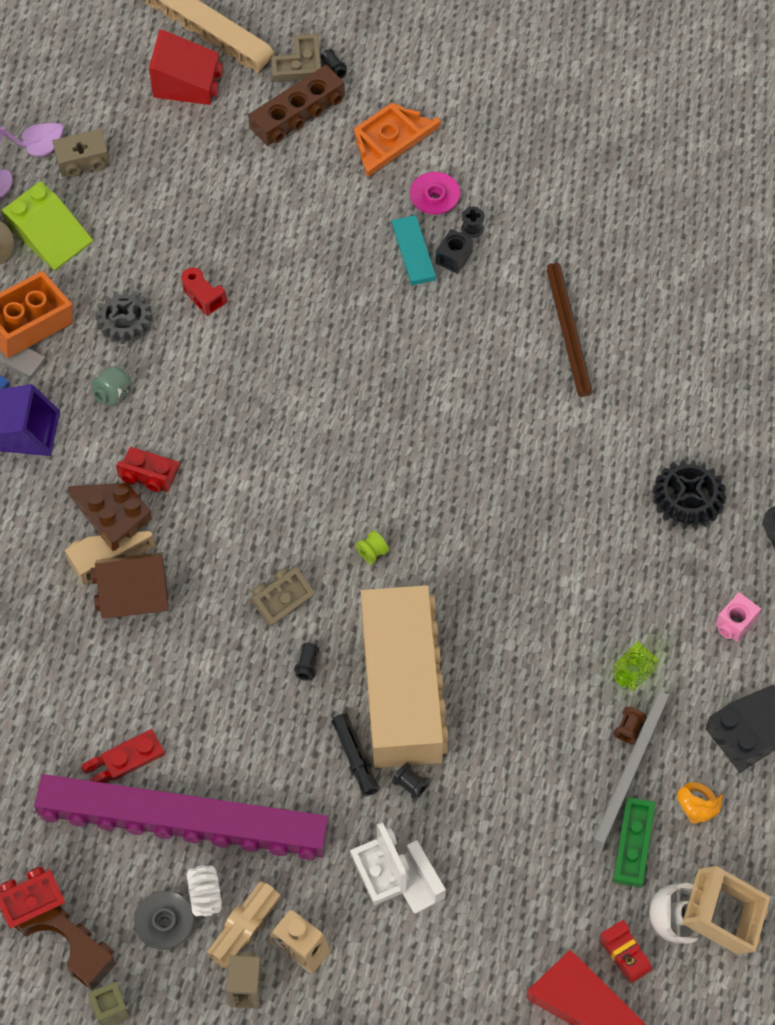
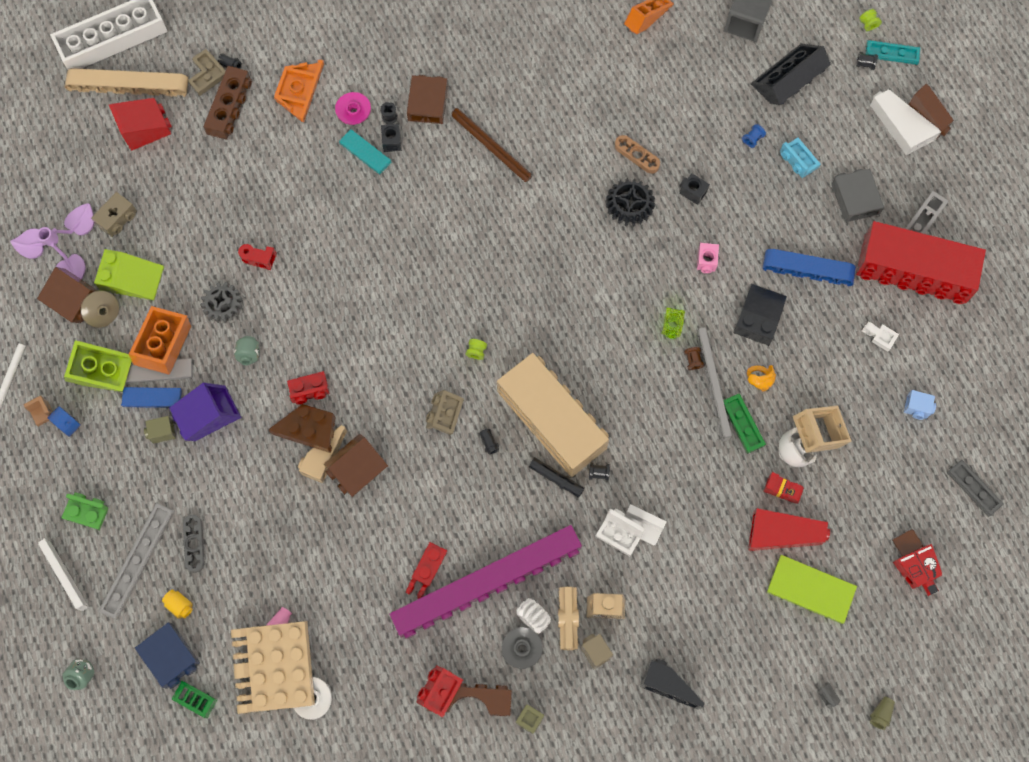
camera: 35 degrees left, 10 degrees up
(530, 233) = (427, 99): none -> reddish brown brick
(744, 434) = (636, 147): none -> medium nougat beam

